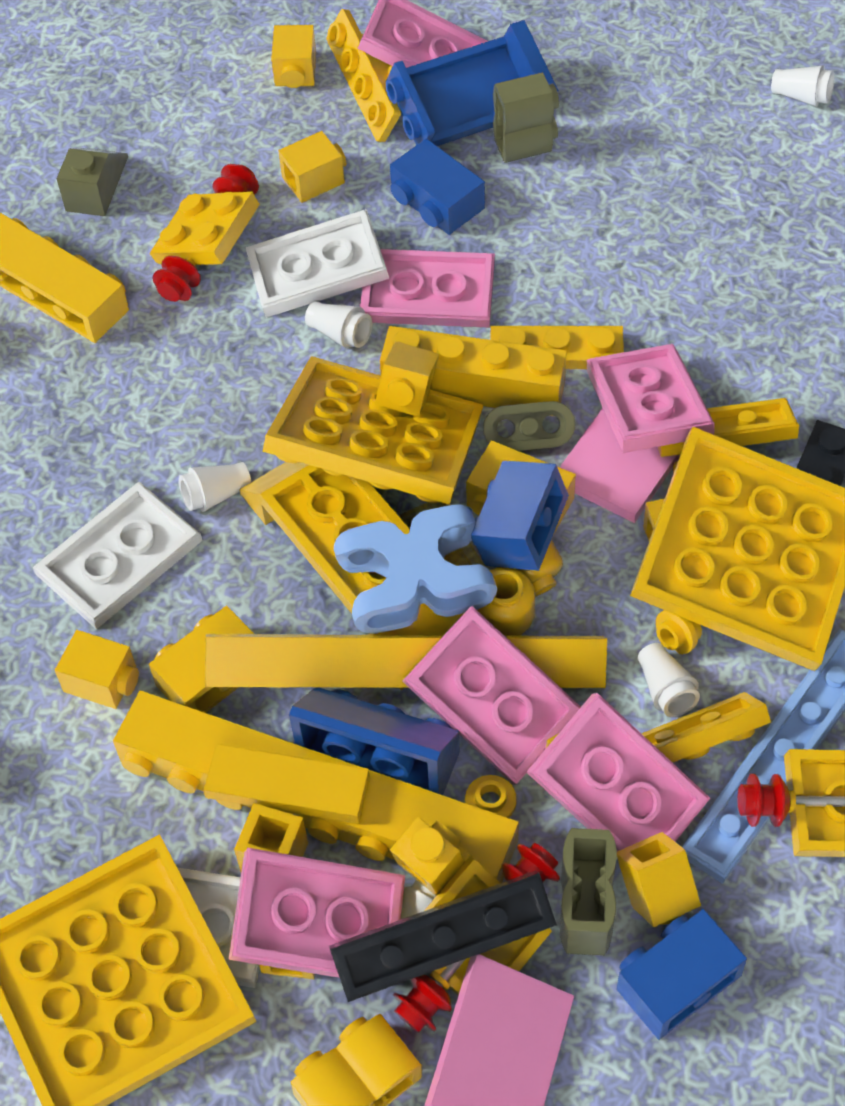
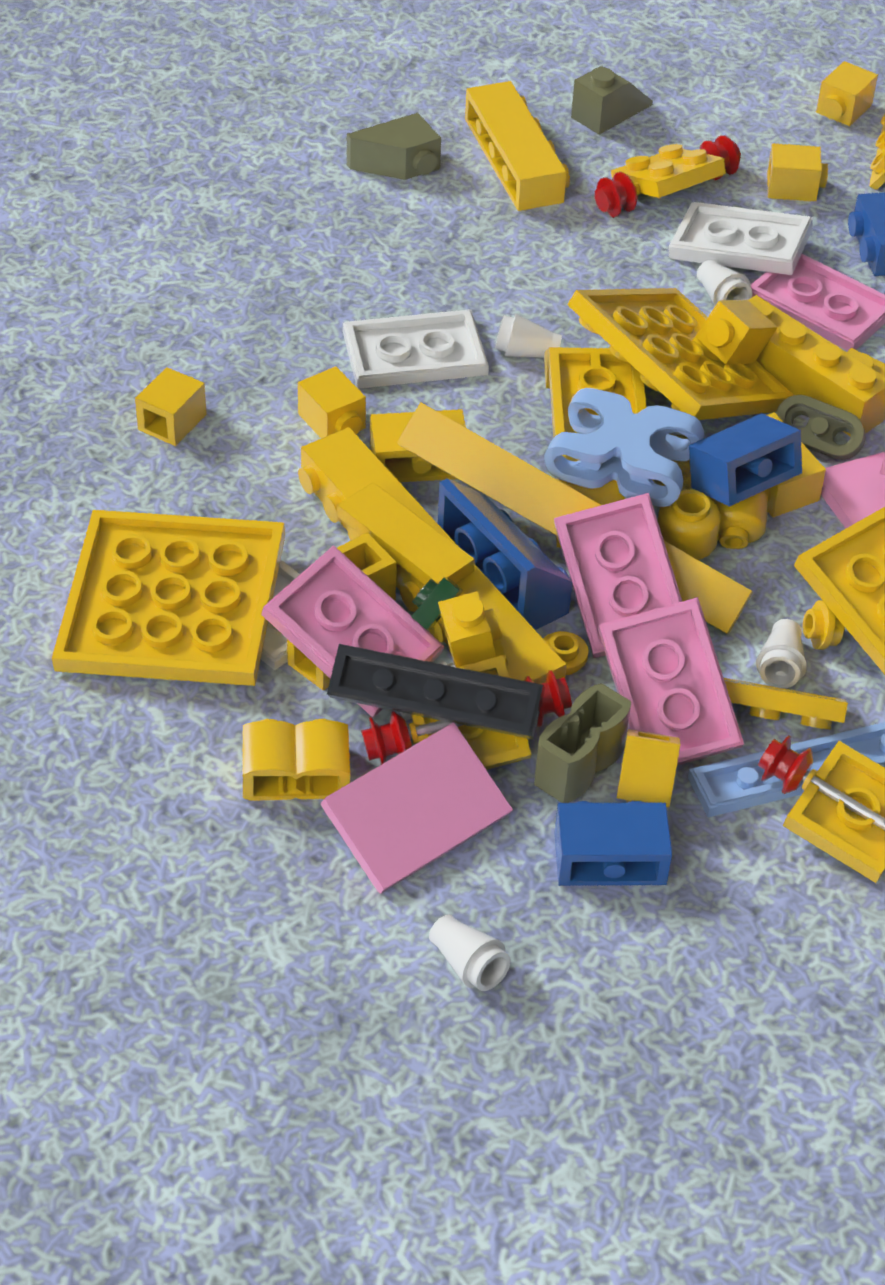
camera: 30 degrees right, 10 degrees down
(372, 839) = (427, 600): none -> dark green plate

